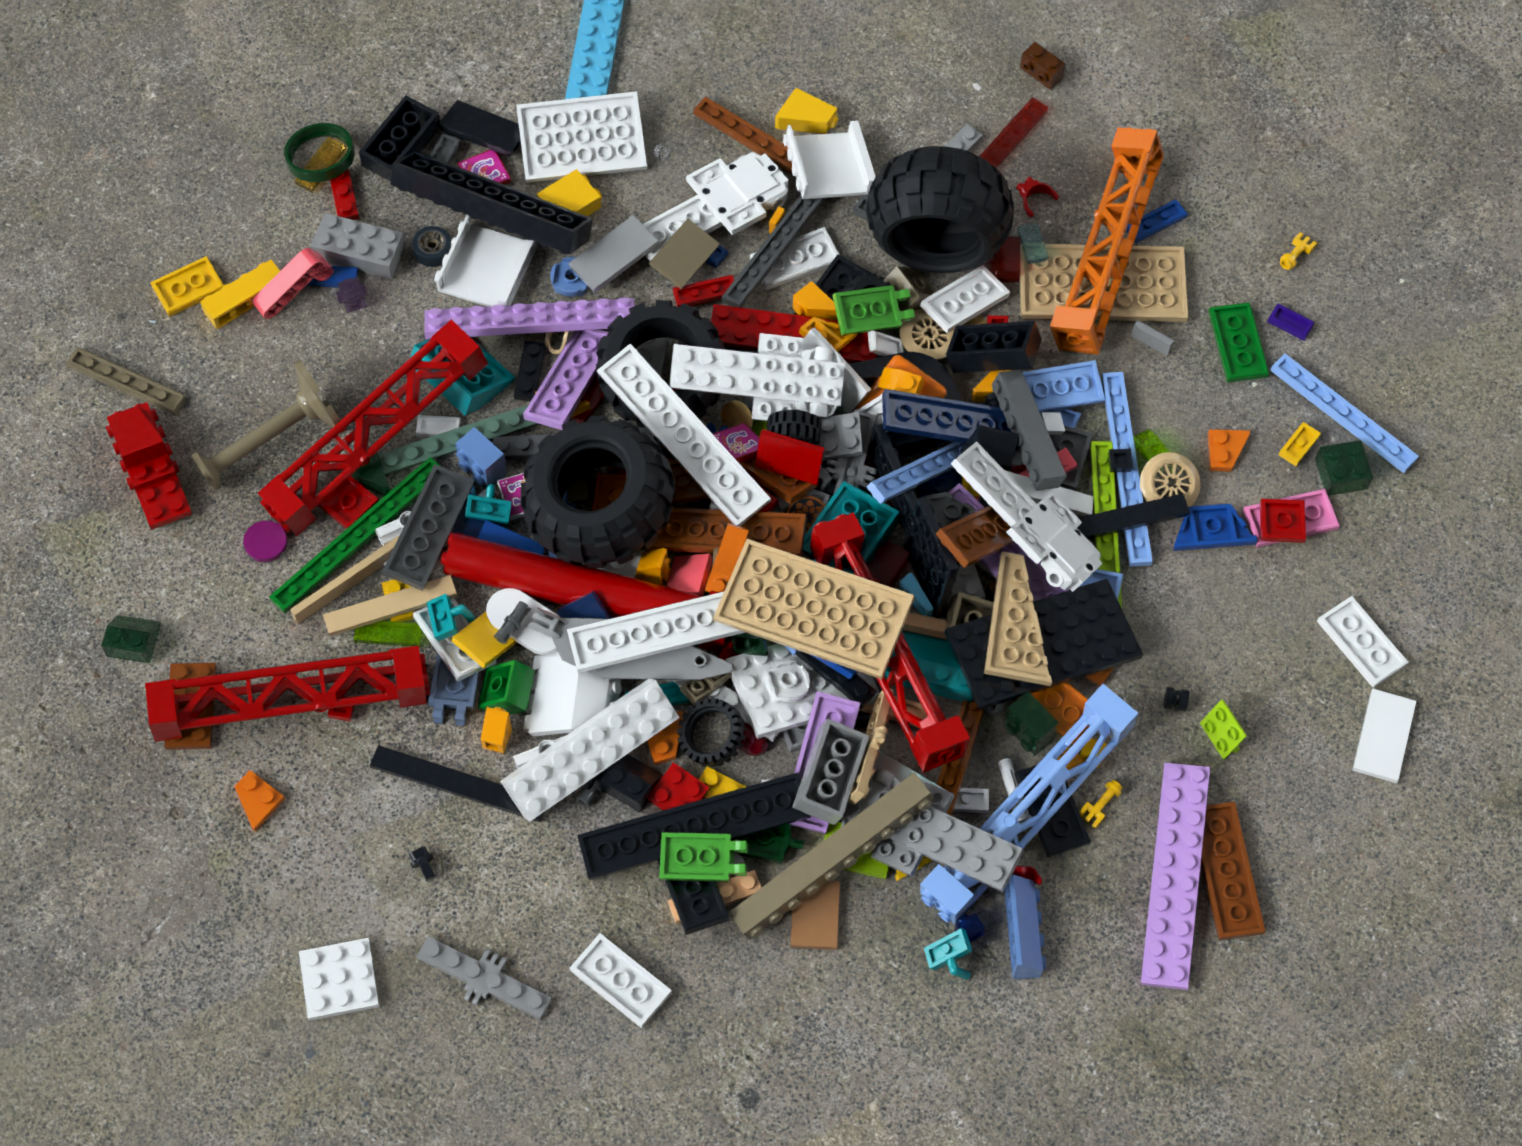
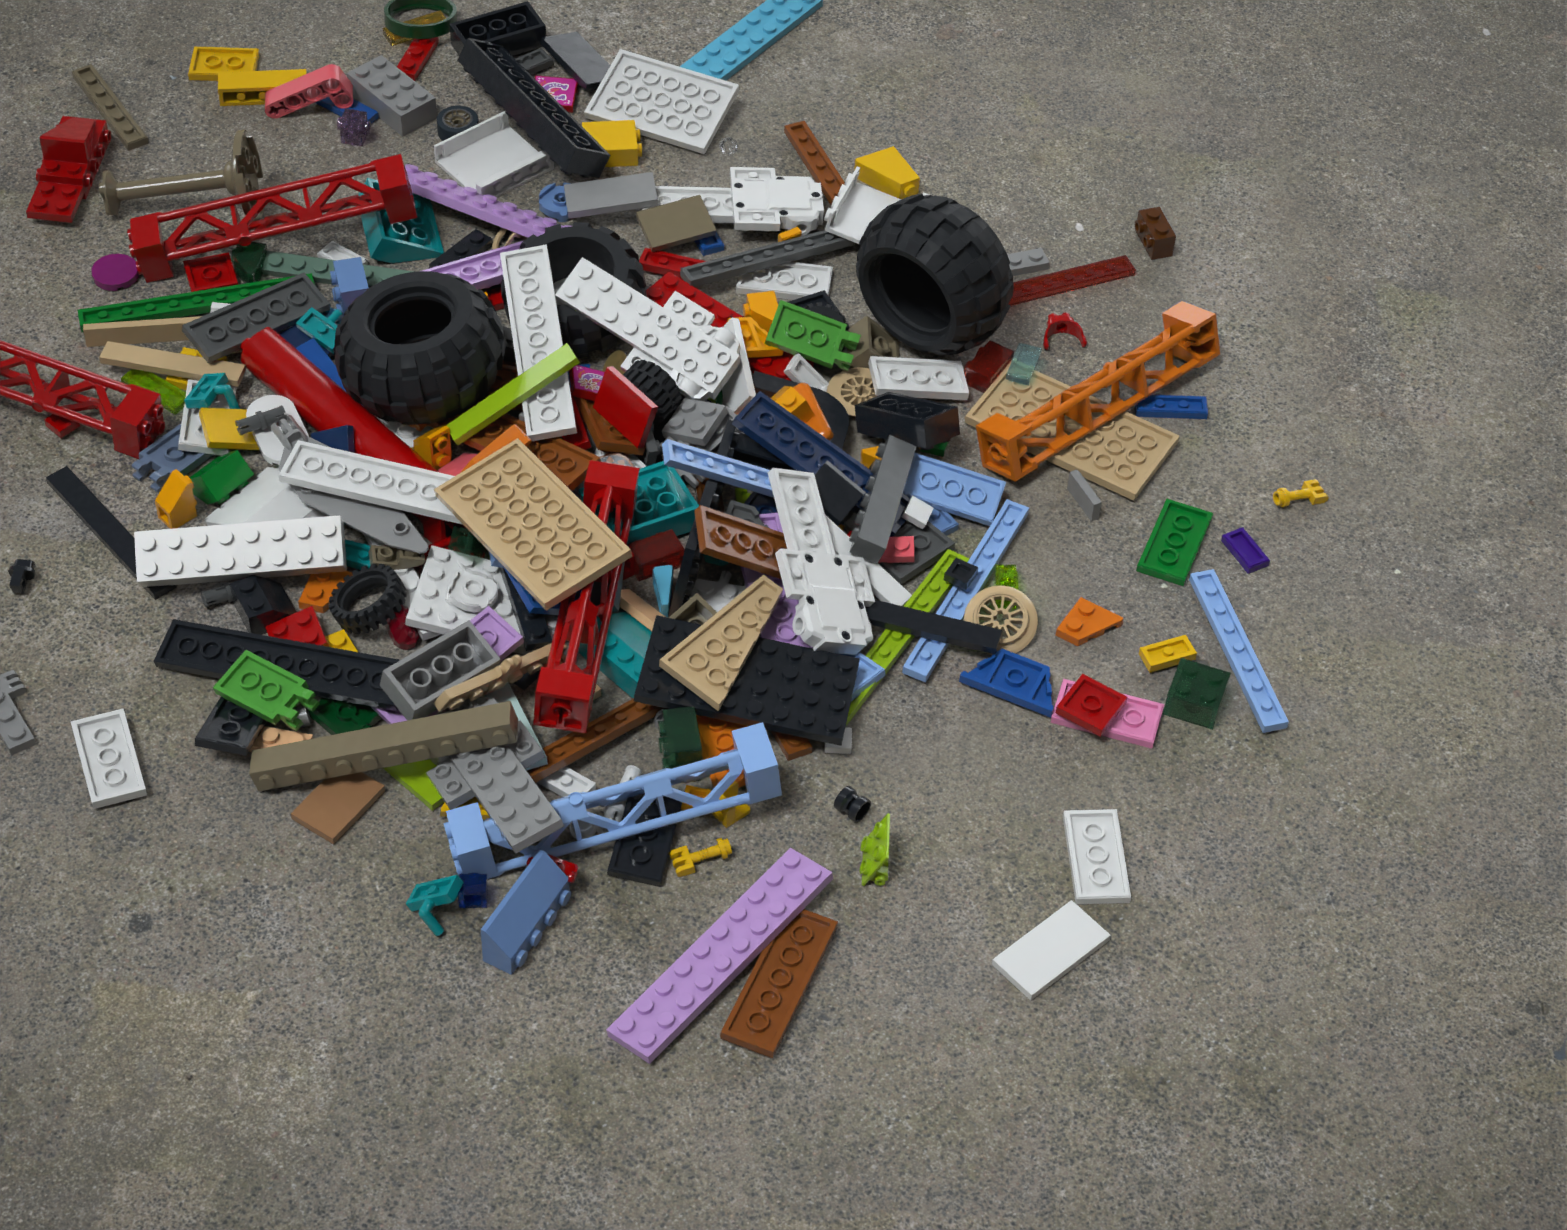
camera: 30 degrees right, 15 degrees down
(700, 494) = (512, 394): none -> lime tile

